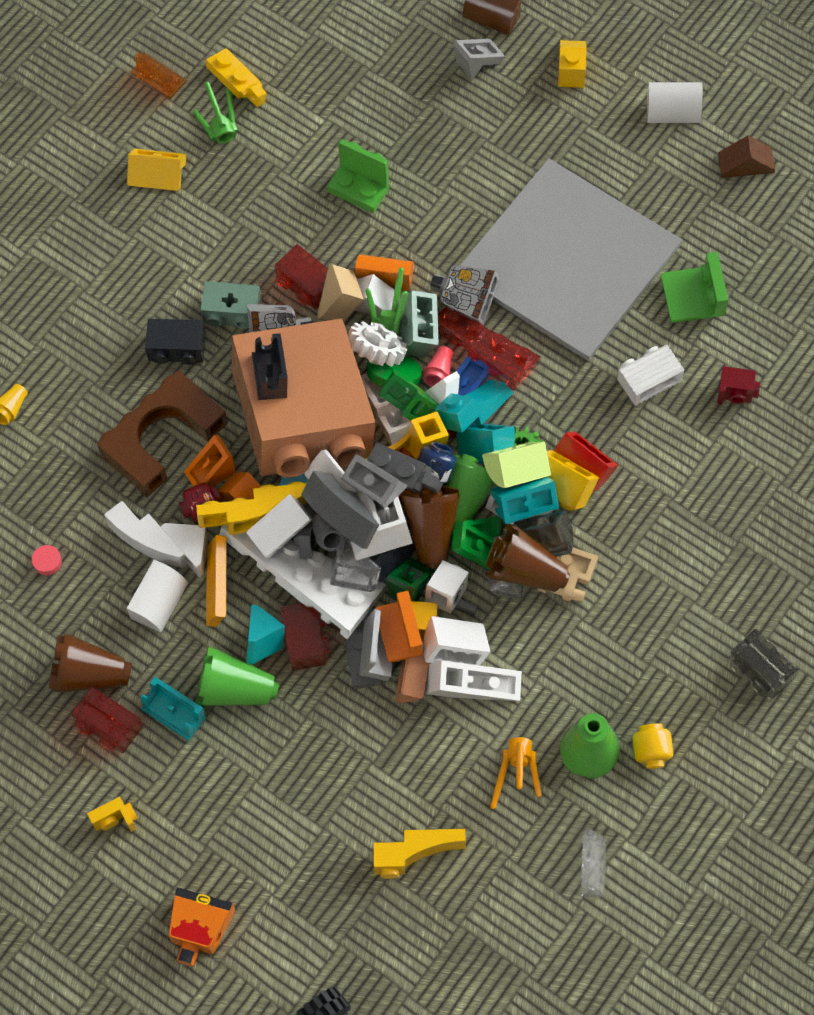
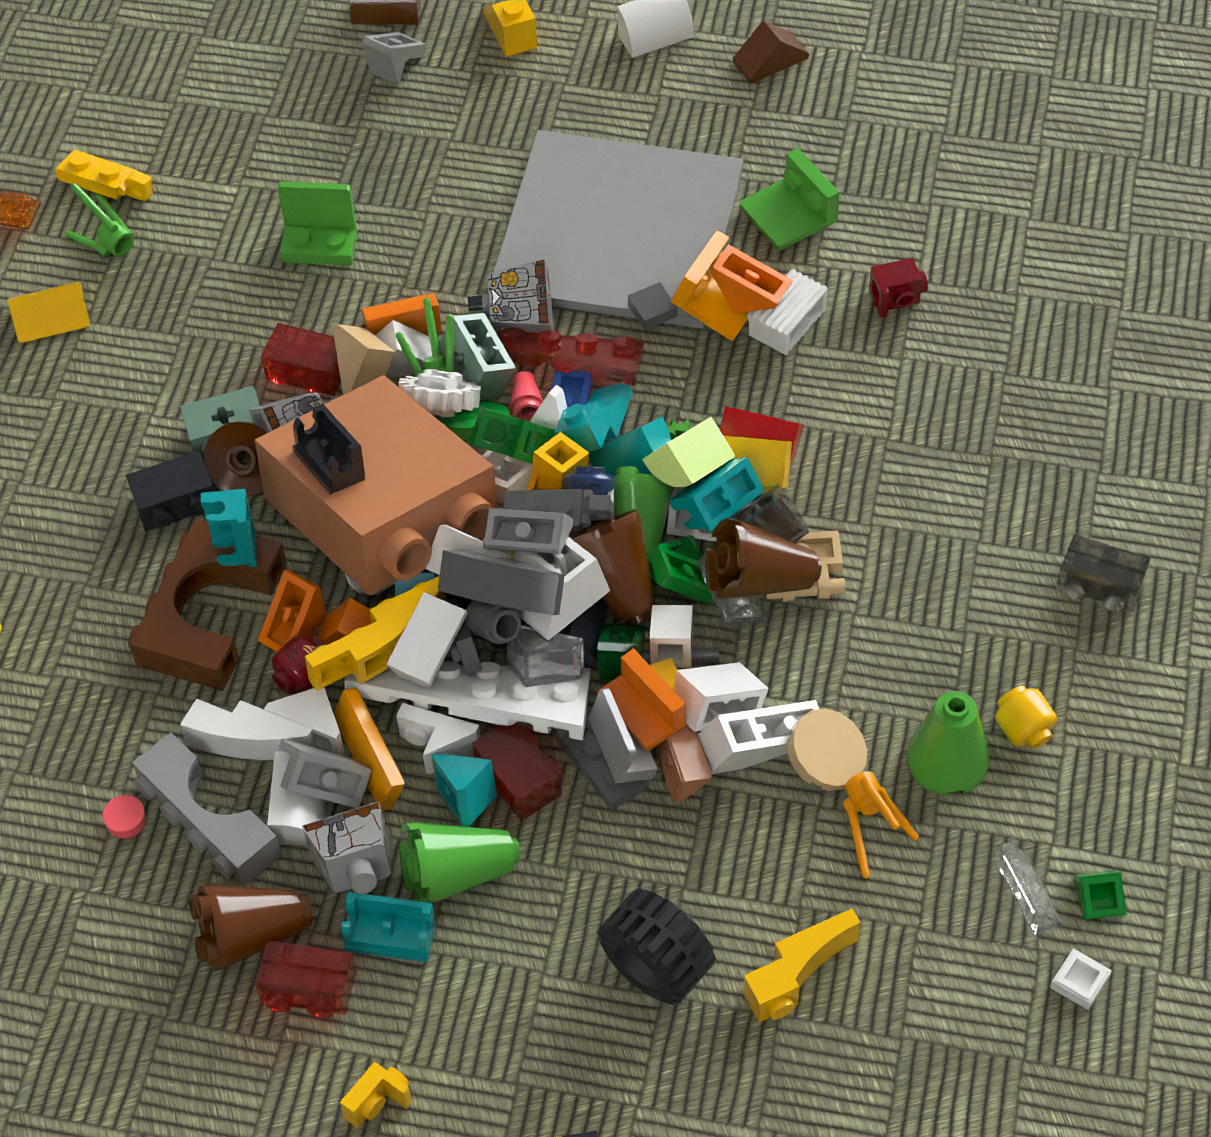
camera: 25 degrees left, 10 degrees down
(106, 608) = (237, 841): none -> light grey arch
(173, 647) = (351, 848): none -> light grey torso
(178, 587) = (324, 774): none -> light grey panel
(195, 388) = (231, 526): none -> teal hinge
(219, 333) = (224, 460): none -> reddish brown dish
(266, 592) = (437, 731): none -> white slope
(326, 799) = (656, 946): none -> black tyre
(509, 710) = (826, 749): none -> tan tile
(558, 332) = (652, 305): none -> dark grey tile
(594, 939) = (1080, 979): none -> white tile
(607, 340) = (702, 297): none -> light orange bracket
(627, 344) = (747, 282): none -> orange slope
(638, 888) = (1100, 894): none -> green slope

